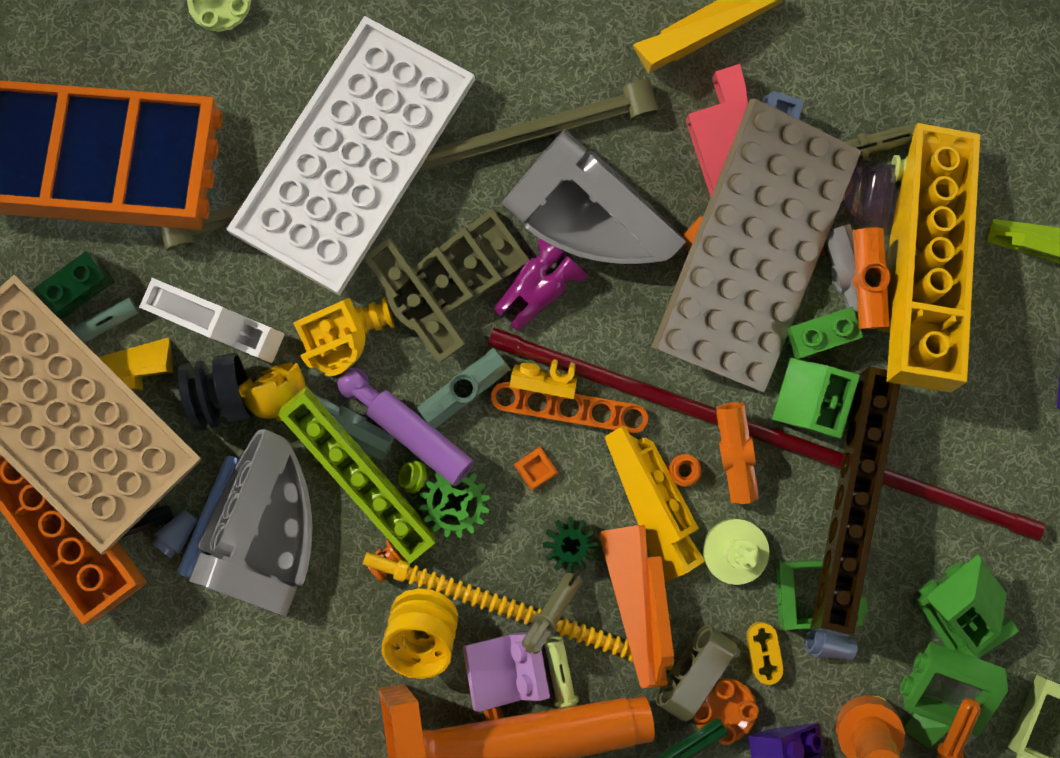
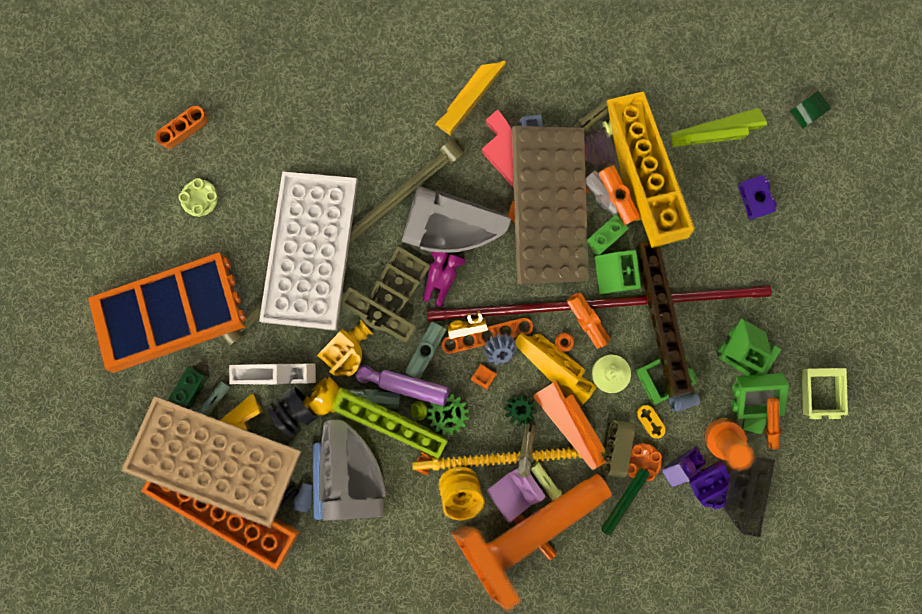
camera: 25 degrees left, 0 degrees up
(580, 437) = (500, 349): none -> sand blue gear

